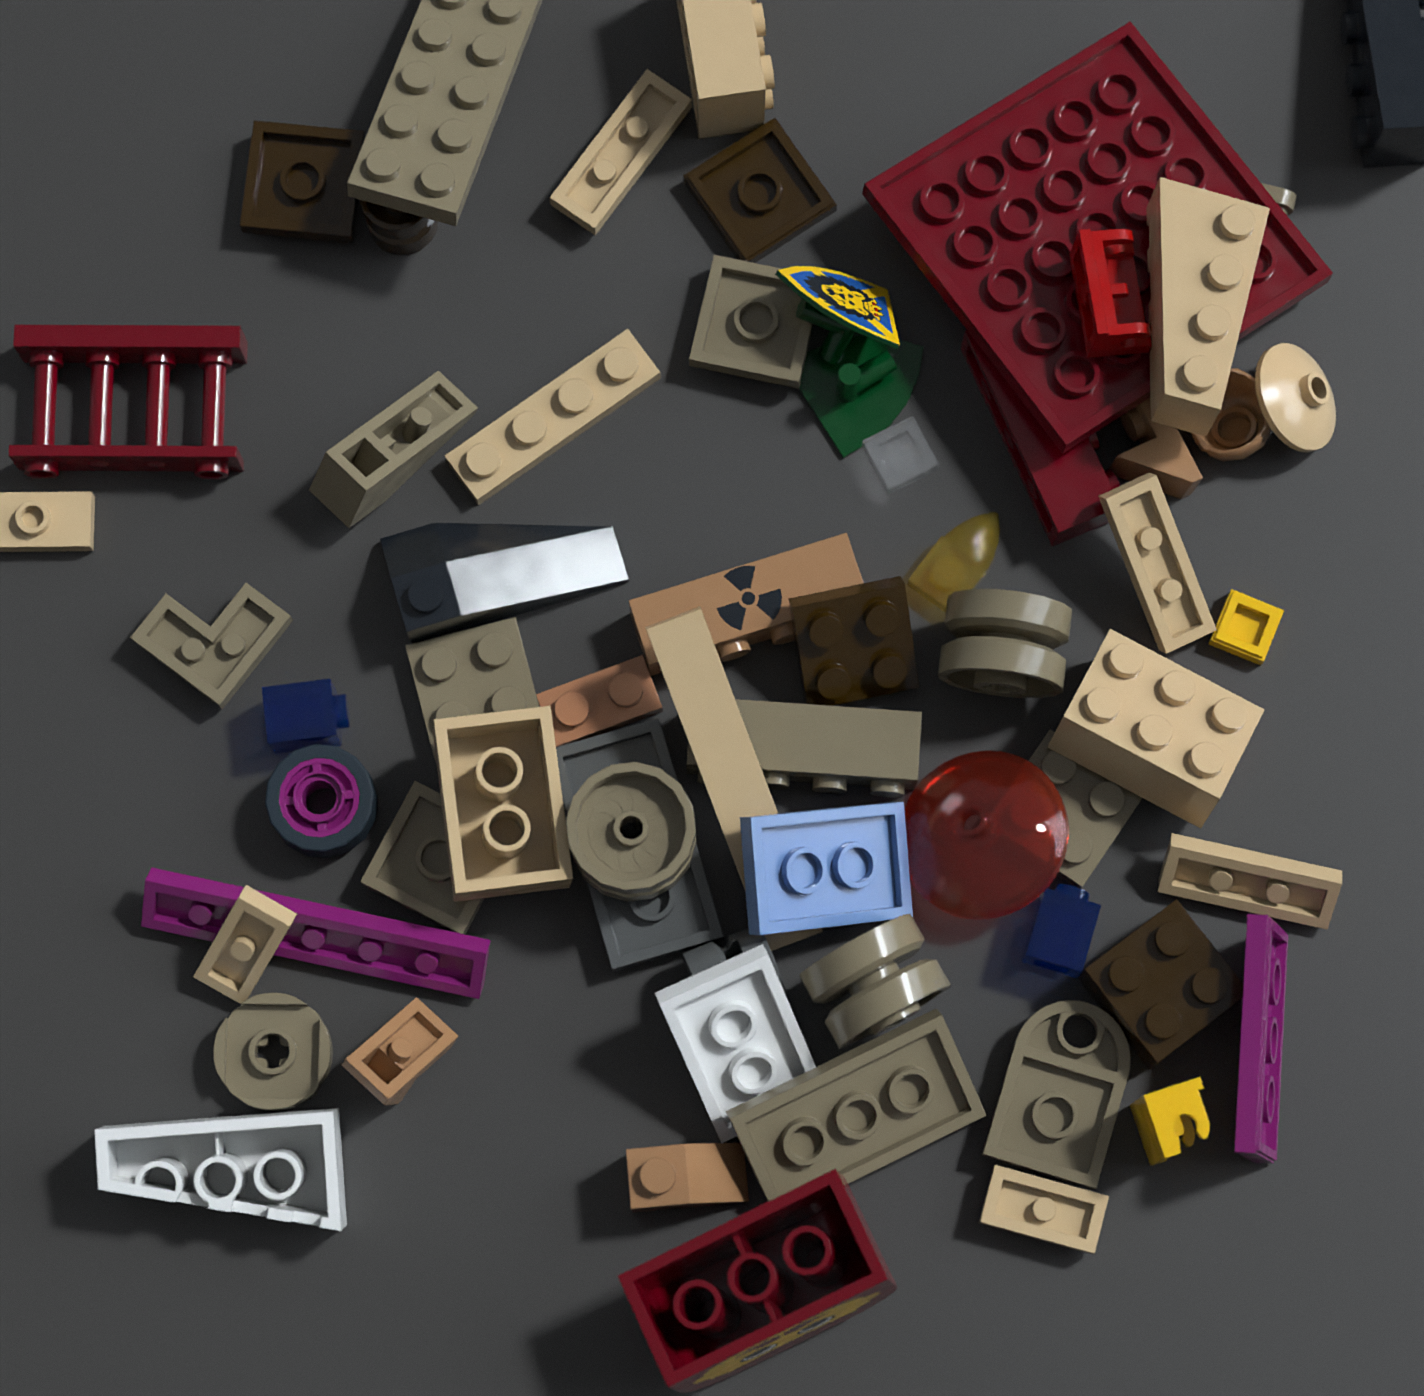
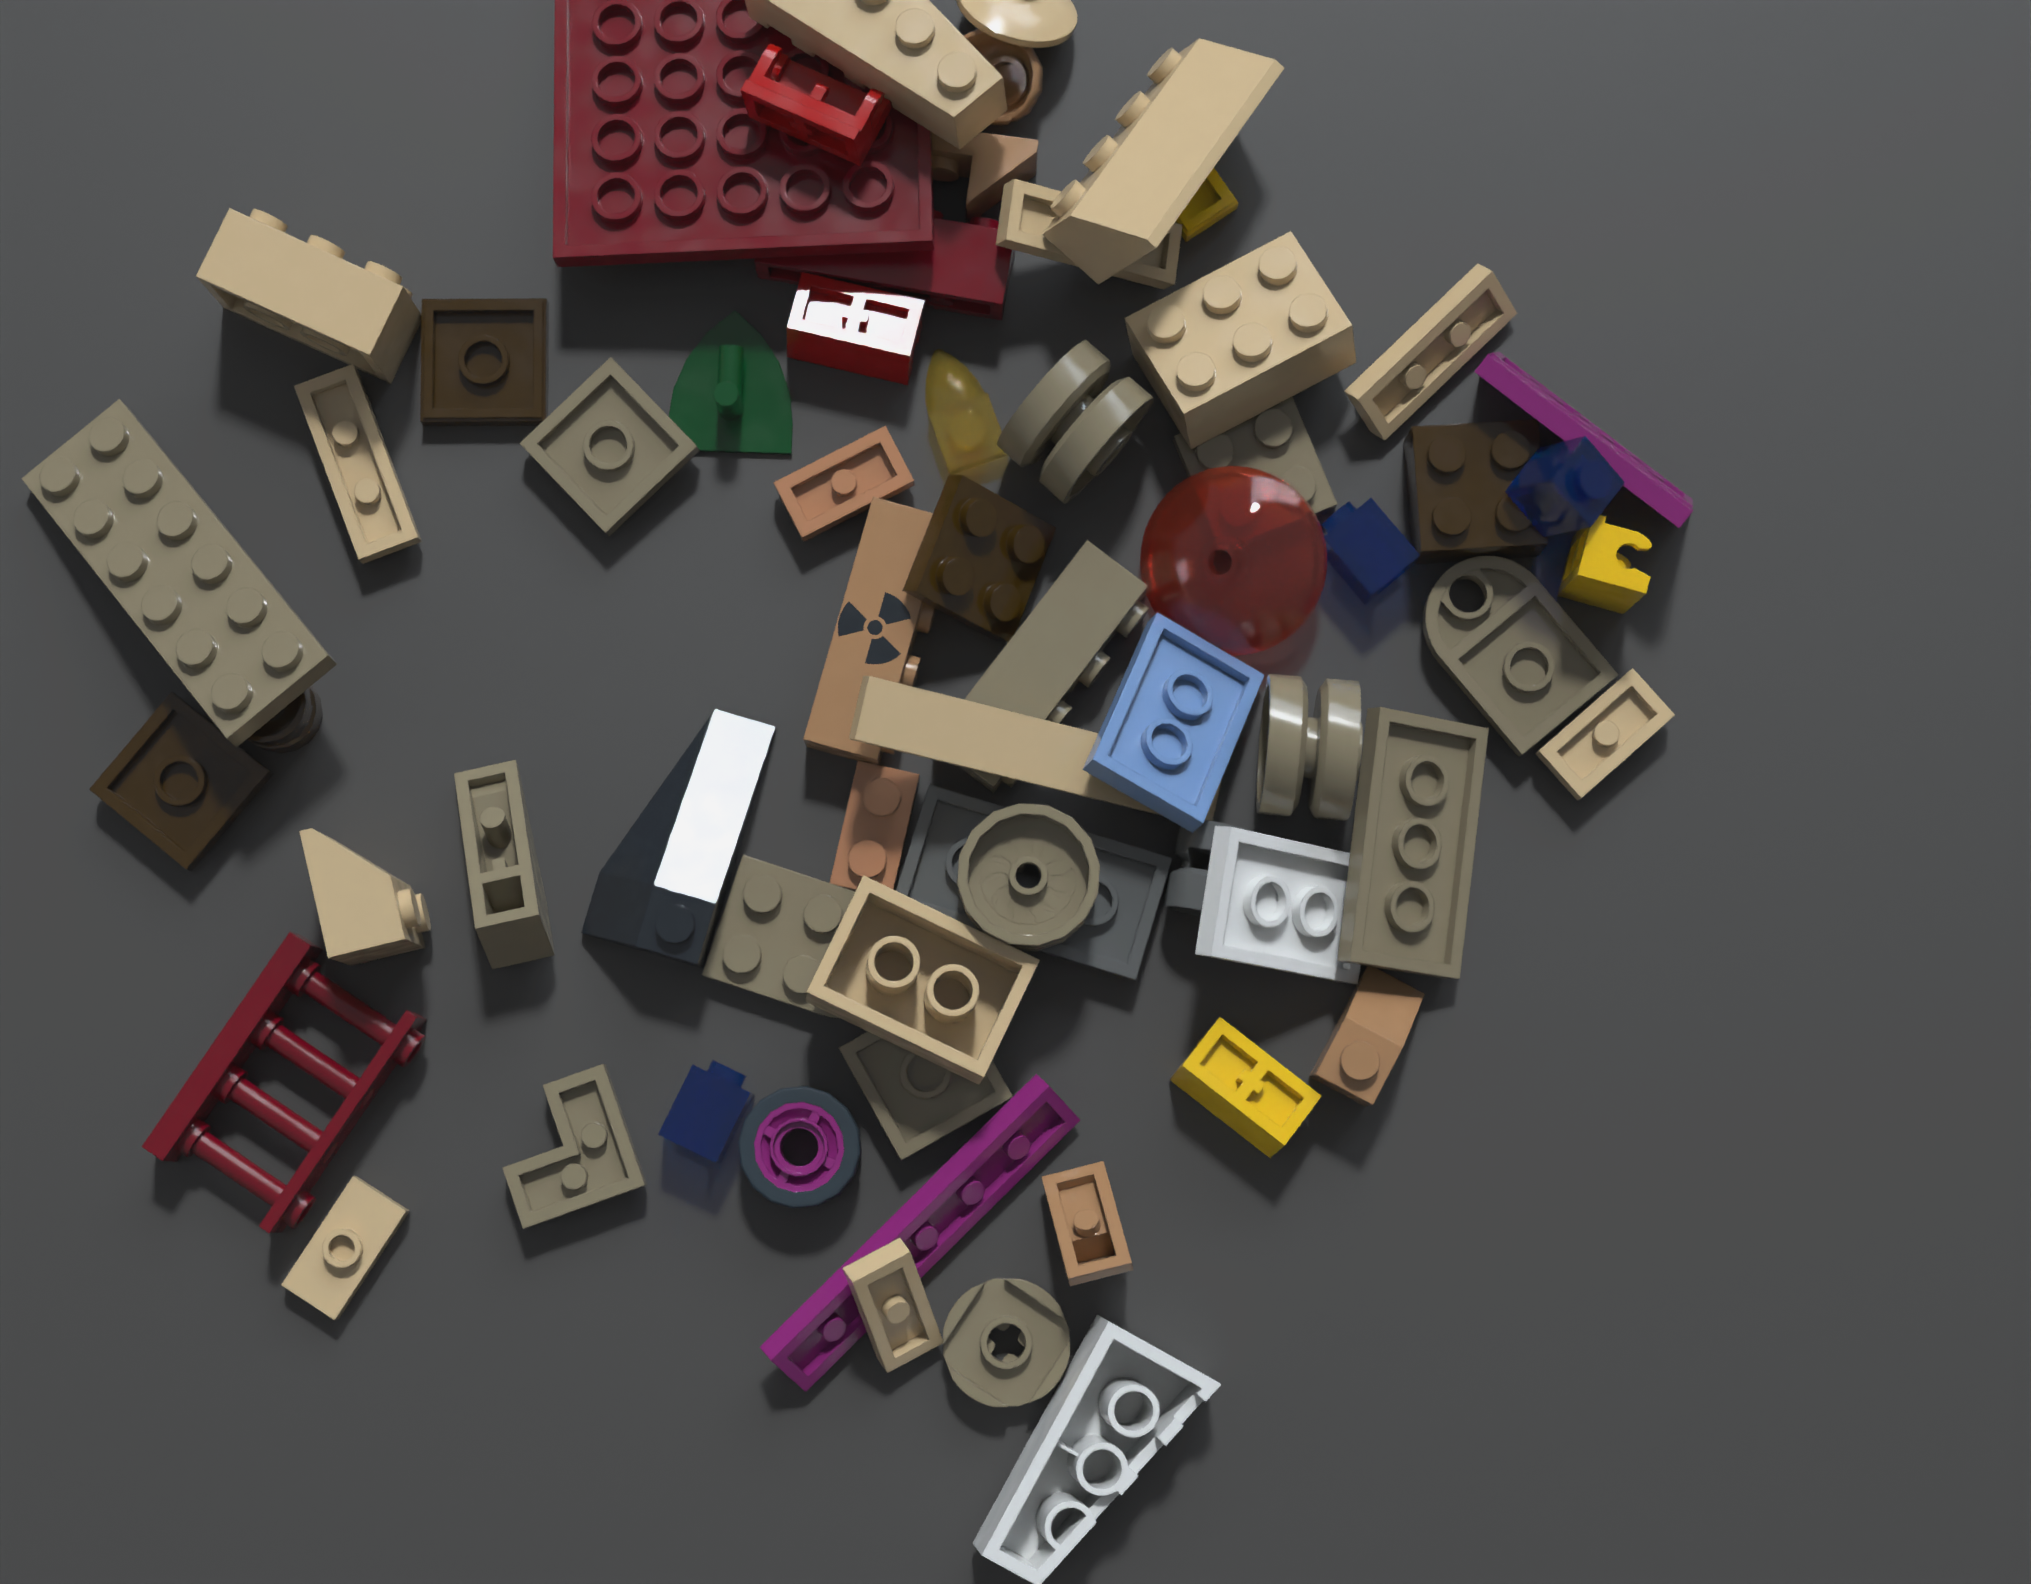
camera: 60 degrees left, 5 degrees up
(293, 362) = (360, 905): none -> tan slope
(553, 416) = (571, 695): tan plate -> none
(584, 1106) = (1245, 1088): none -> yellow hinge
(758, 1284) = (1521, 1033): dark red brick -> none
(842, 307) = (653, 357): shield -> none
(845, 506) = (844, 483): none -> nougat plate
(900, 455) = (826, 399): clear plate -> none
(967, 438) = (854, 328): none -> hinge
(1206, 1042) = (1565, 486): none -> clear blue brick
(1250, 569) = (1158, 155): none -> tan slope

